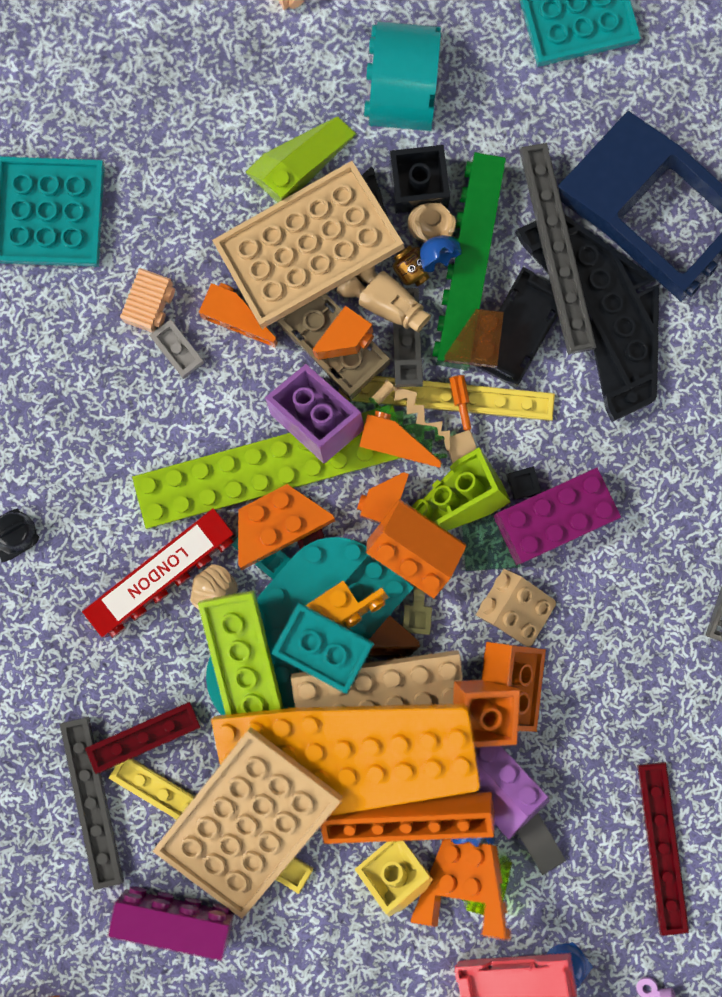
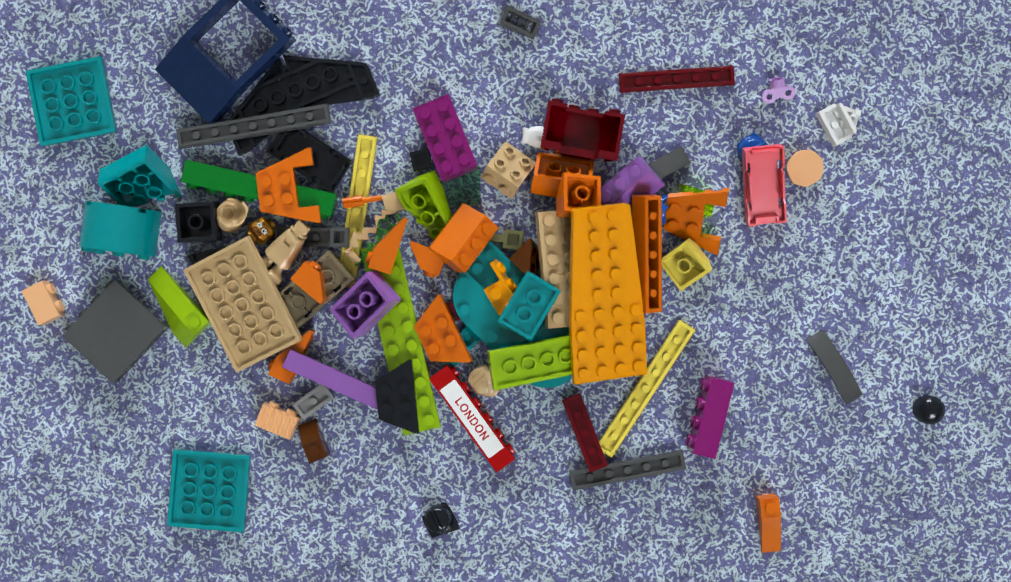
camera: 90 degrees left, 5 degrees up
(119, 351) = (313, 441): none -> reddish brown slope
(184, 466) = (398, 398): none -> black wing
(204, 382) = (331, 378): none -> medium lavender tile
(247, 823) = (645, 362): tan plate -> none
(263, 74) = (114, 331): none -> dark grey panel
(439, 250) = (251, 211): blue hair -> none
(472, 285) = (279, 190): none -> orange wing
(475, 96) = (138, 178): none -> teal wedge
(478, 341) = (318, 186): clear orange wing -> none
(566, 644) = (532, 136): none -> white animal
(577, 714) = (582, 132): none -> dark red cylinder

